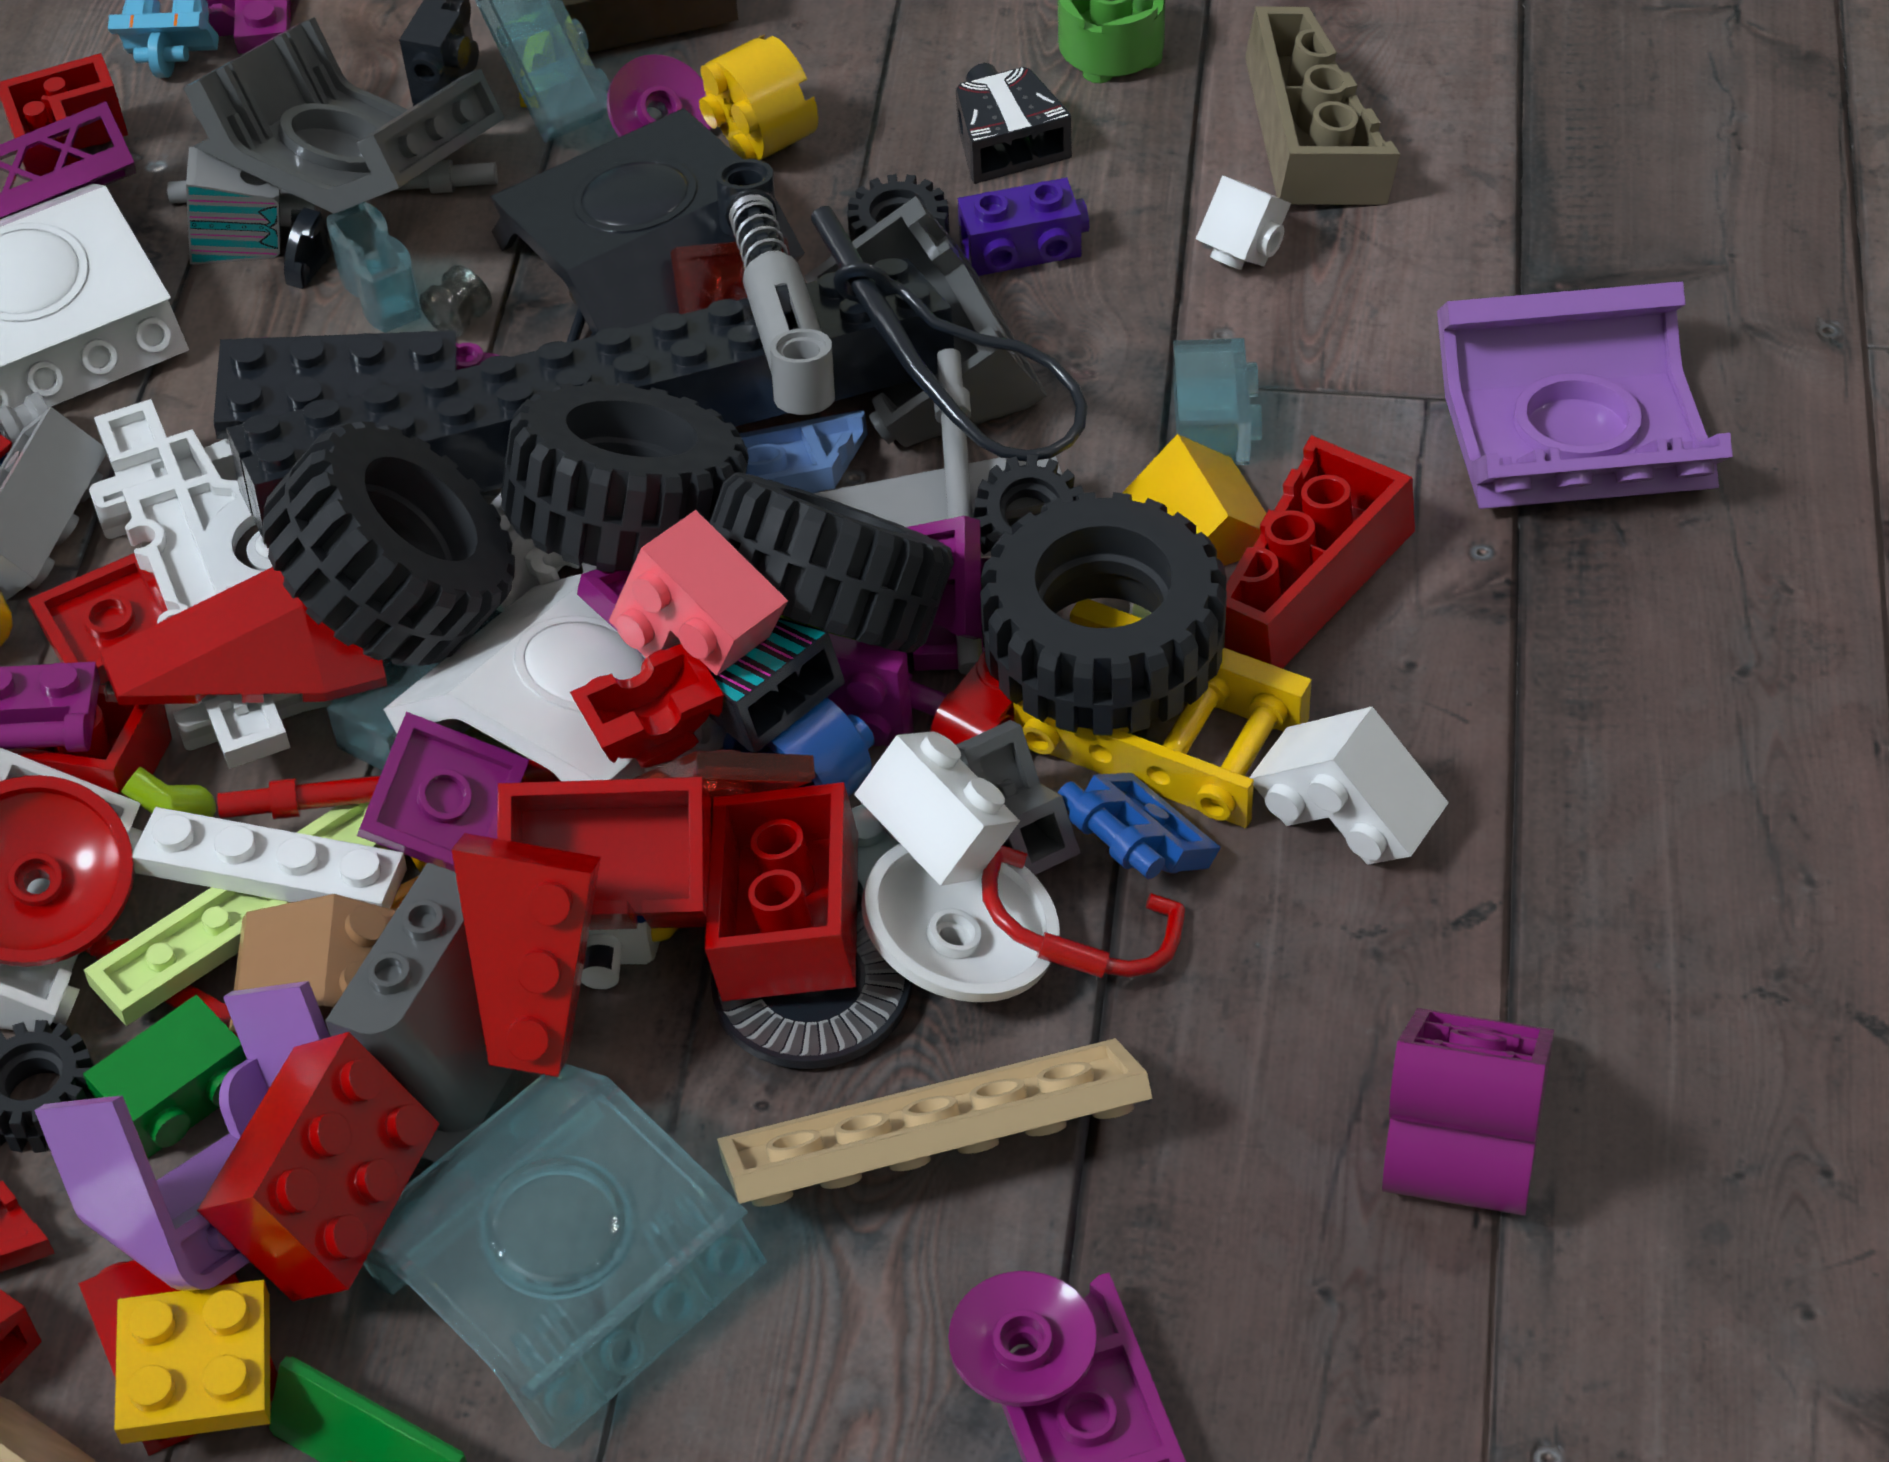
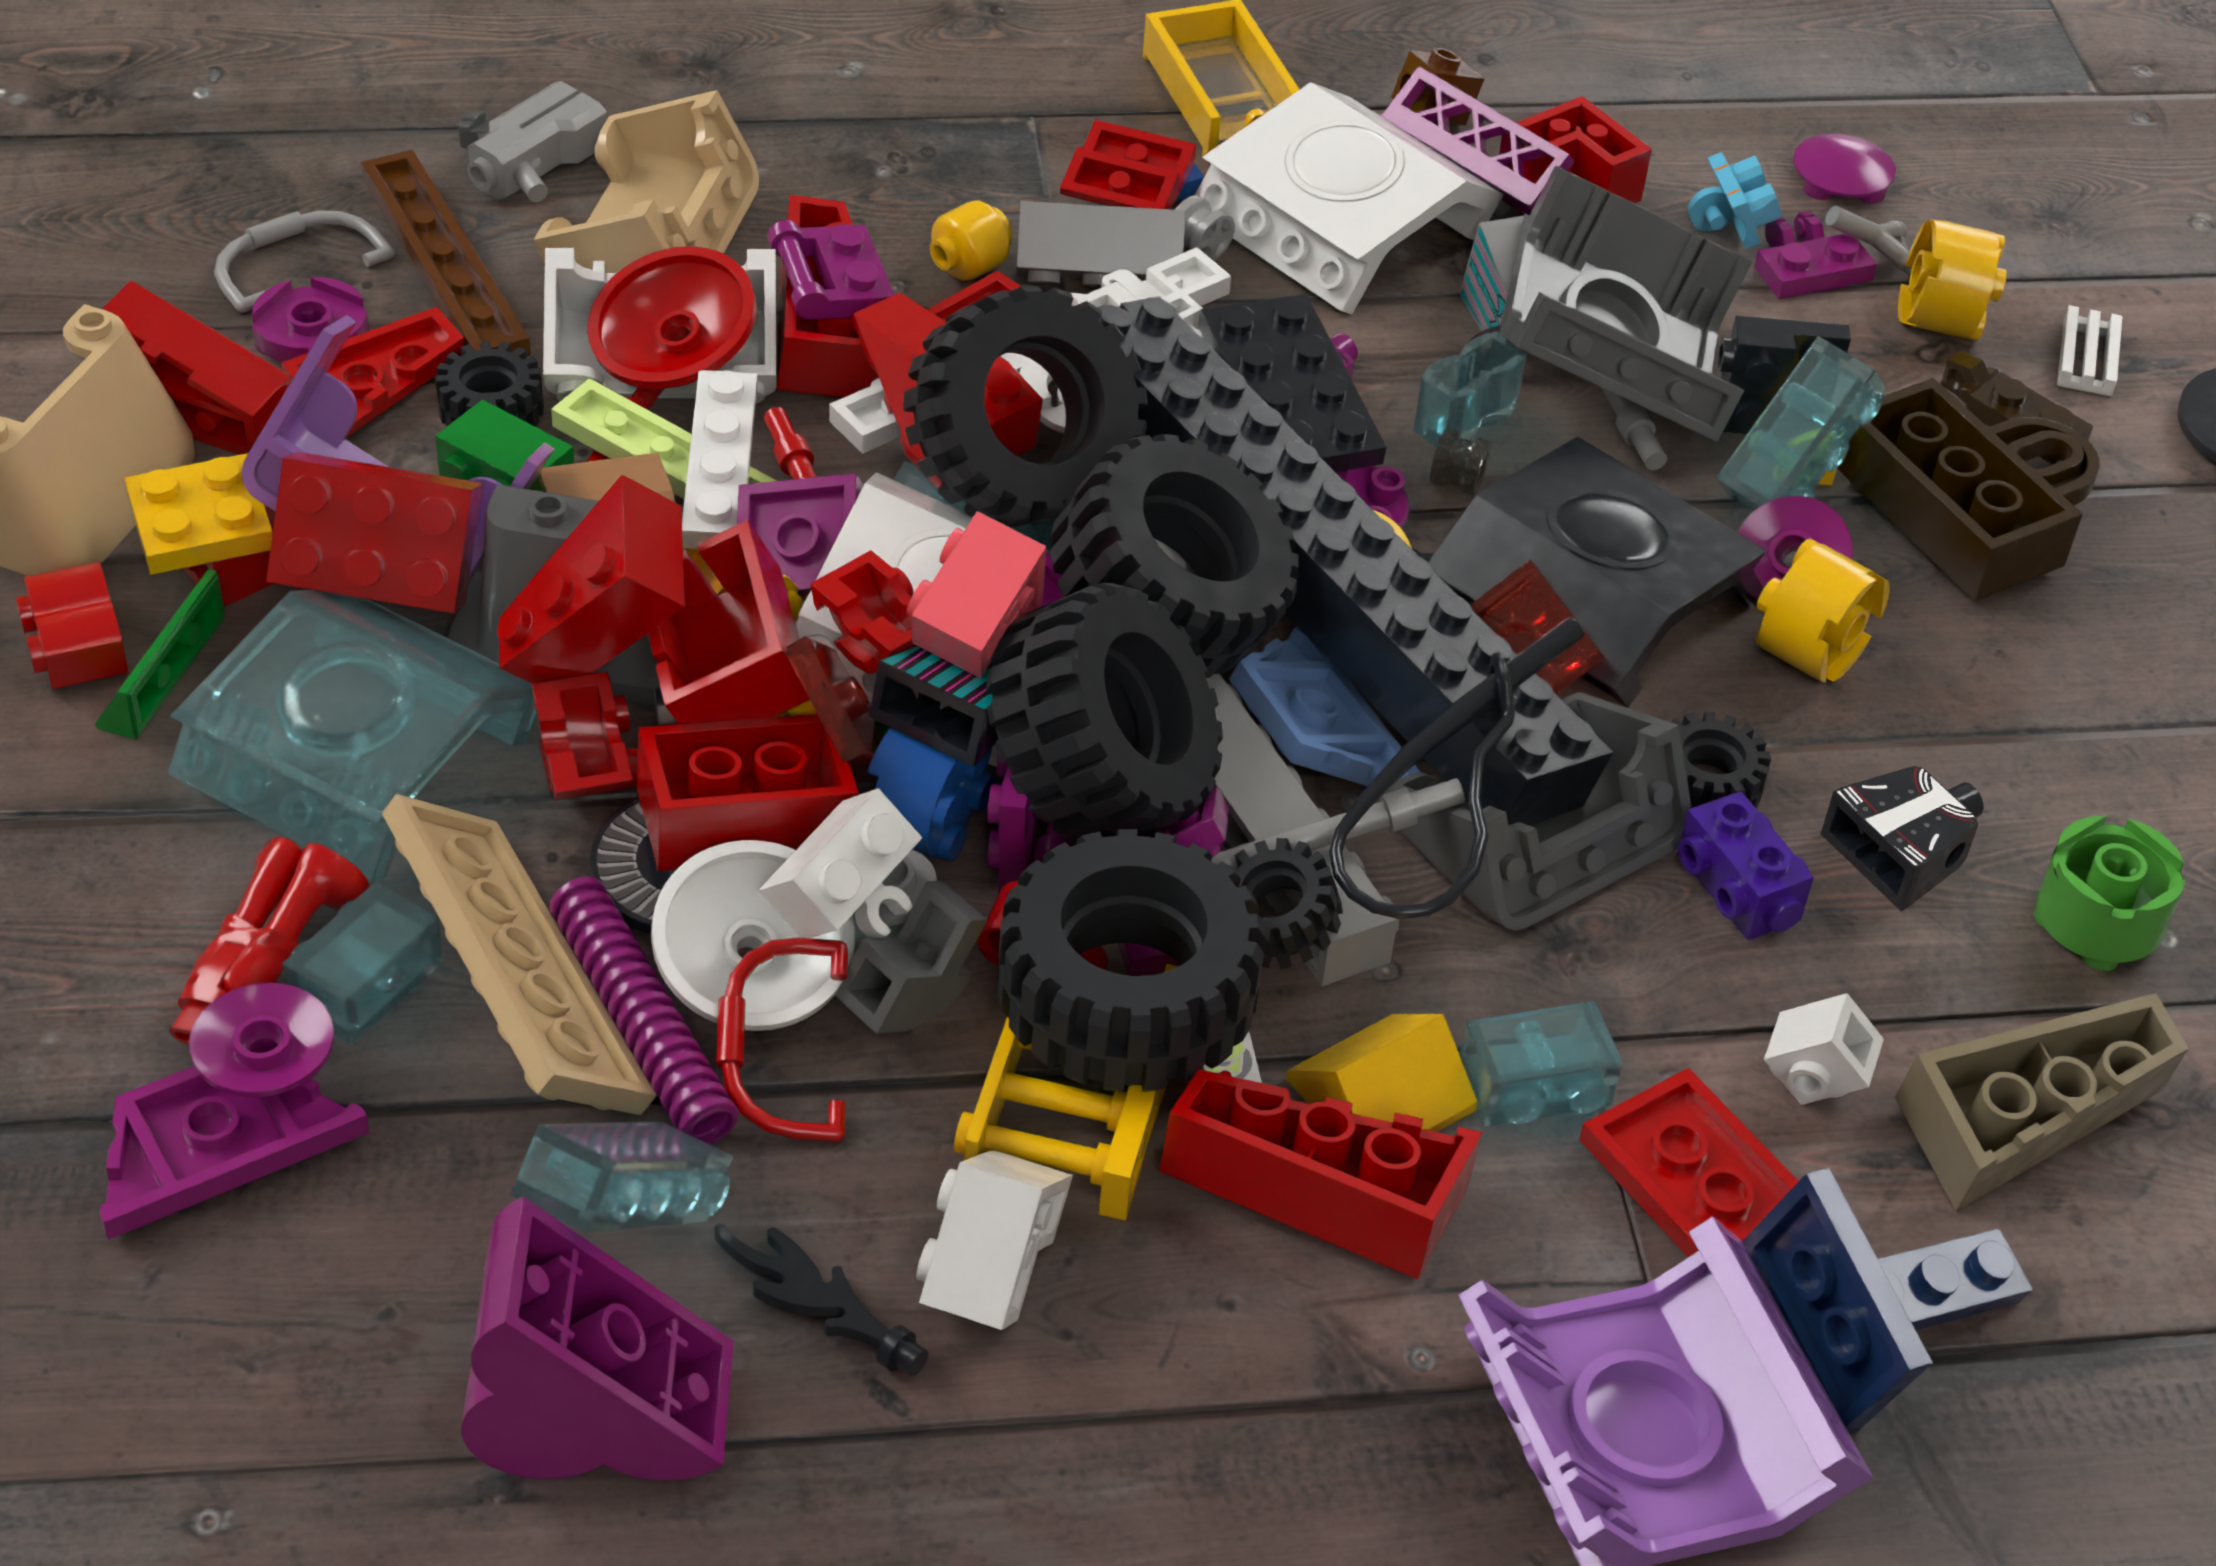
camera: 70 degrees right, 5 degrees down
(154, 793) = (788, 394): lime arm -> none
(645, 1045) = (582, 736): none -> red cylinder
(776, 290) = (1348, 632): light grey piece -> none
(879, 1379) = (252, 954): none -> red piece
(894, 1265) = (367, 959): none -> clear light blue brick
(1009, 1034) = (643, 1010): none -> magenta piece
(1137, 825) = (928, 1082): blue plate -> none
(1295, 1019) = (622, 1175): none -> clear light blue brick
(1340, 332) = (1687, 1159): none -> red plate
(1367, 944) = (806, 1294): none -> black piece
(1511, 249) = (1863, 1312): none -> dark blue piece

